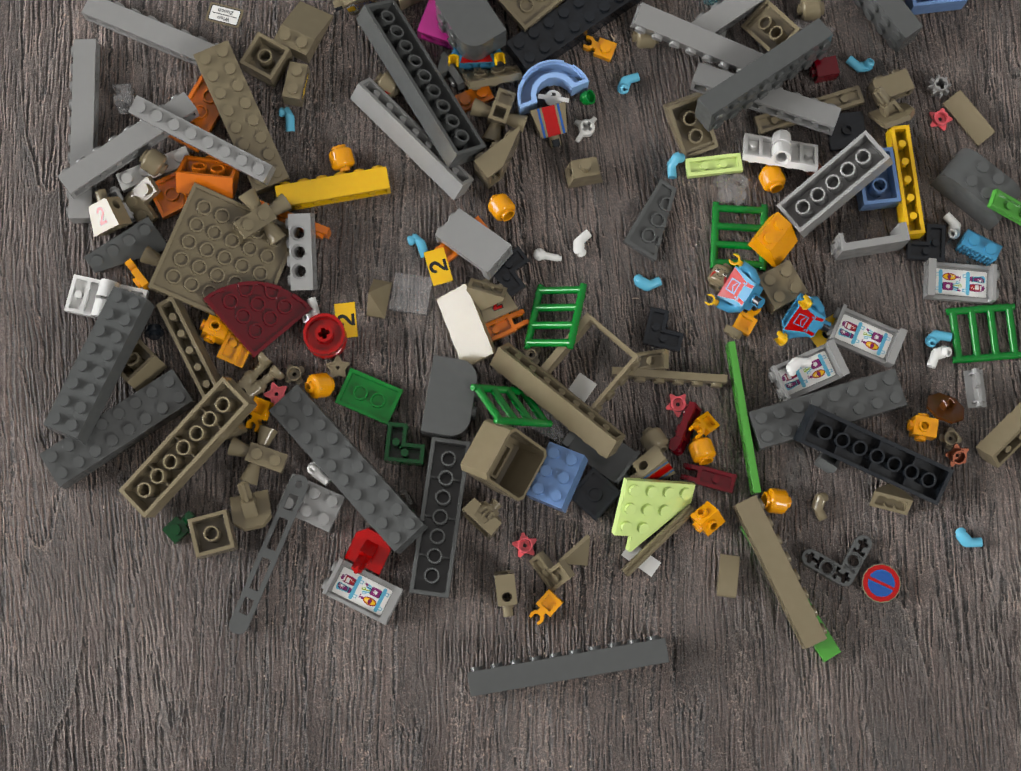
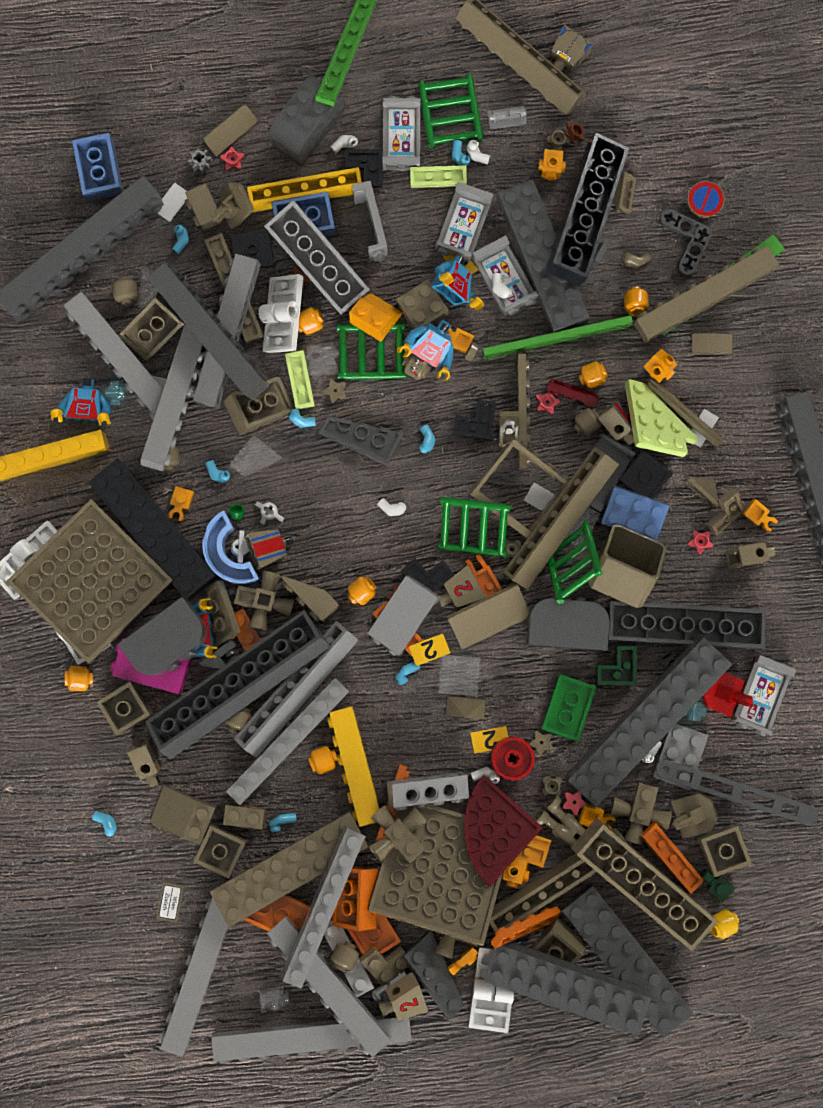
camera: 90 degrees left, 5 degrees up
(141, 529) = (726, 924): none -> yellow head
(159, 324) = (529, 925): none -> orange plate
(211, 482) = (672, 858): none -> orange plate
(319, 385) = (563, 758): light orange head -> none
(353, 519) = (696, 712): none -> clear light blue gear
(363, 128) = (288, 741): none -> light grey brick
(483, 516) = (680, 581): dark tan brick -> none
(485, 293) = (456, 598): dark tan slope -> none
(539, 254) = (407, 548): white piece -> none
(584, 172) = (319, 510): dark tan torso -> none
(639, 117) = (254, 457): none -> clear wing
(701, 203) = (335, 395): none -> dark tan plate
(704, 425) = (568, 373): light orange plate -> none
(710, 478) = (619, 365): dark red hinge -> none
(824, 69) = (190, 271): dark red brick -> none
(898, 60) = (172, 202): none -> white sticker
(914, 314) = (437, 176): none -> yellowish green plate
(945, 408) = (530, 144): reddish brown piece -> none
(966, 540) = (656, 120): medium azure arm -> none
(978, 247) = (366, 117): dark azure brick -> none

